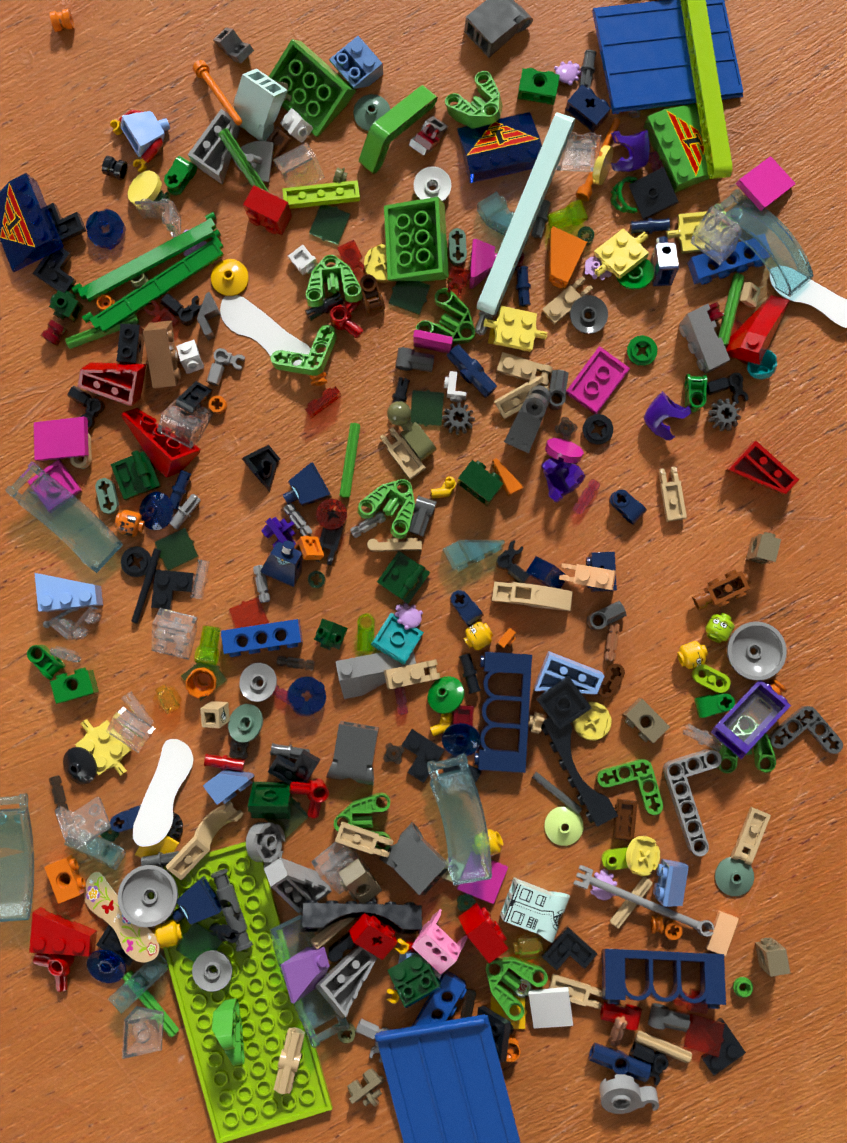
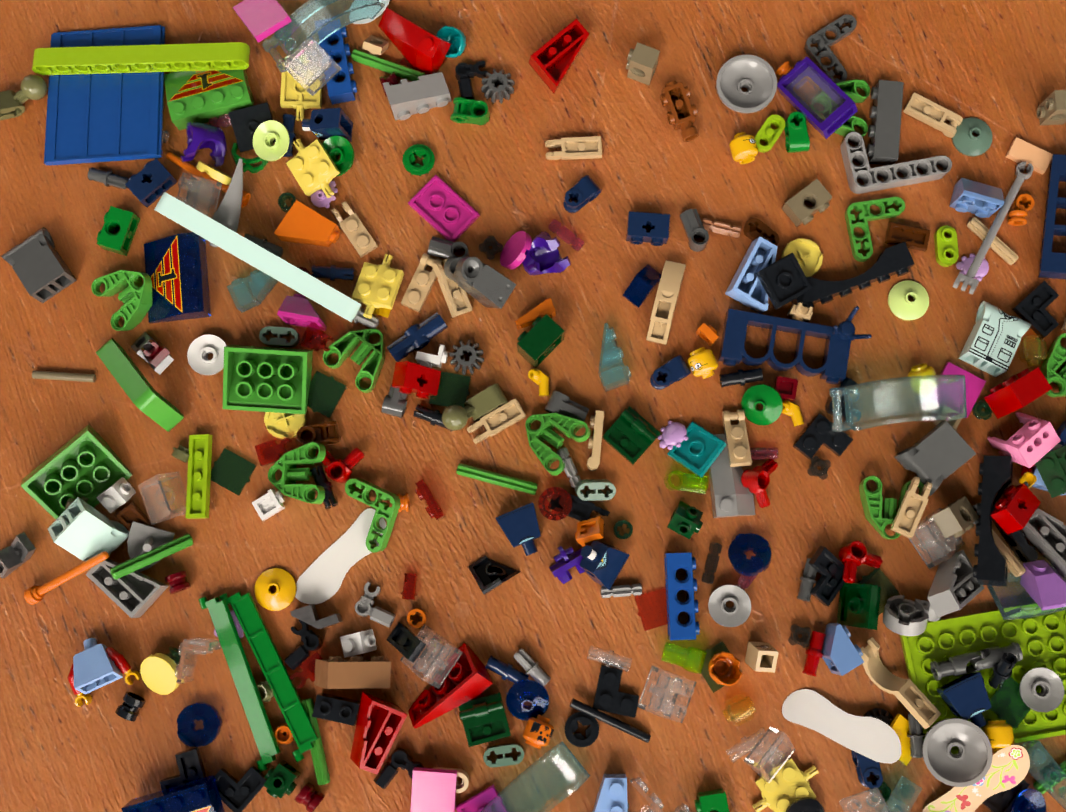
camera: 80 degrees left, 5 degrees down
(176, 549) = (572, 682): clear green piece -> none
(179, 175) = (148, 630): green piece -> none
(225, 191) = (177, 582): none -> dark red wheel
(239, 721) = (773, 633): sand green dish -> none
(244, 394) = (409, 586): none -> clear red pin
(267, 210) = (208, 536): red brick -> none
(299, 522) = (552, 544): light grey axle -> none
(349, 550) = (595, 494): none -> sand green beam
(354, 753) = (815, 508): dark grey piece -> none
(357, 64) = (59, 418): medium blue slope -> none
(361, 112) = (124, 414): sand green dish -> none
(374, 697) = (758, 480): none -> red axle
(398, 62) = (63, 376): none -> dark tan bar
(430, 364) = (416, 378): none -> red brick
(432, 341) = (380, 372): dark pink tile -> none
(461, 745) = (811, 394): clear blue dish -> none
(505, 561) = (625, 326): black bar -> none
(523, 766) = (846, 329): none -> dark blue plant
(556, 792) = (874, 302): dark grey bar -> none
(568, 72) = (107, 198): lavender piece -> none
(568, 182) = (230, 207): none -> light grey piece
(572, 214) = (263, 212): clear neon green piece -> none
(590, 576) = (652, 238): light nougat hinge -> none
(593, 306) = (373, 199): dark grey dish -> none
(600, 421) = (499, 206): black gear -> none
(641, 204) = (264, 138): none -> yellowish green dish
(642, 855) = (946, 222): light yellow tile -> none
(660, 409) = (486, 145): dark purple piece -> none
(702, 737) = (828, 149): clear pin -> none
(719, 627) = (718, 117): lime head -> none
(736, 789) = (885, 123): none -> dark grey brick

